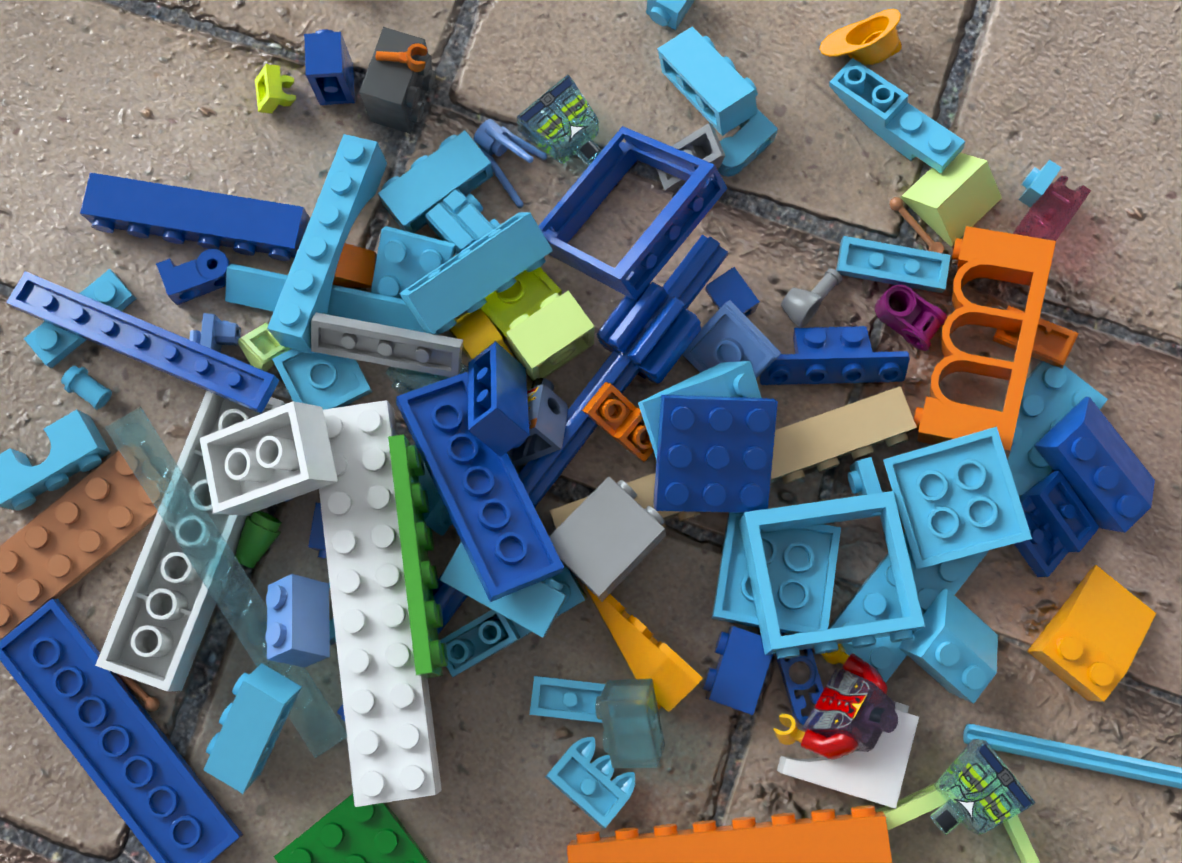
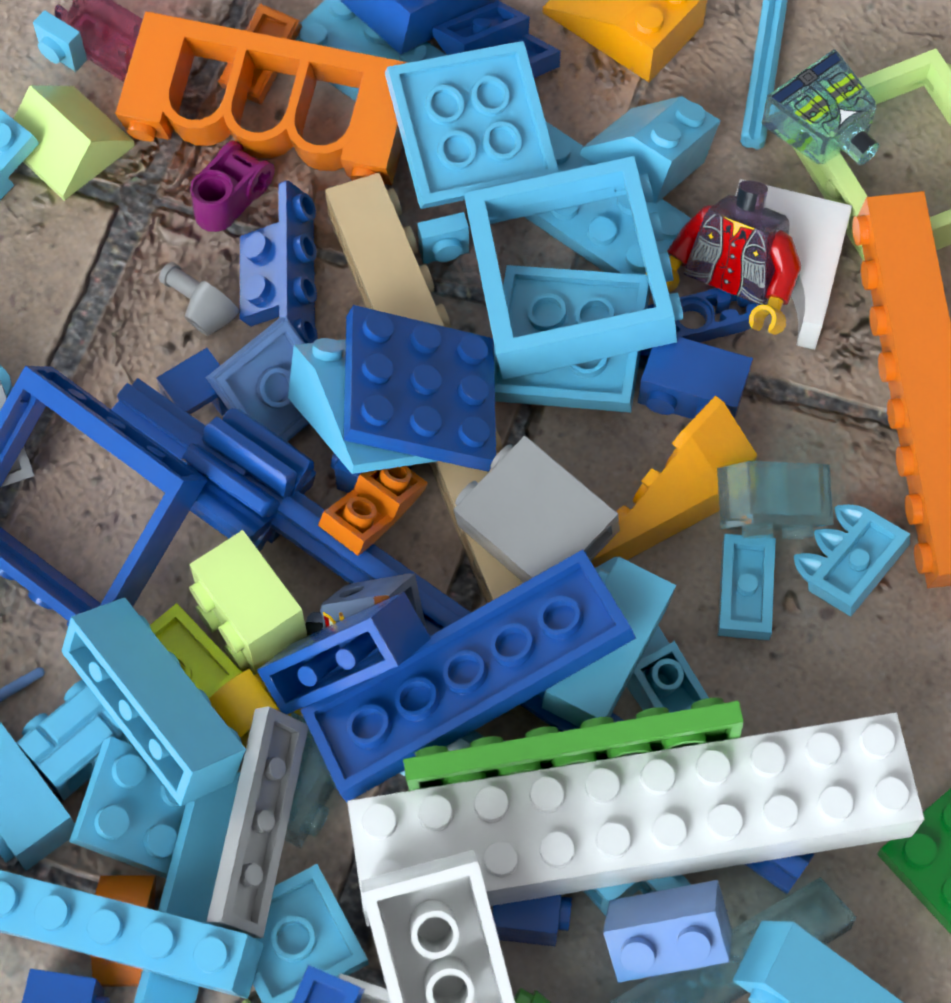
camera: 90 degrees left, 15 degrees down
(893, 264) = (157, 204): medium azure plate -> none
(897, 205) = (136, 162): nougat hinge -> none

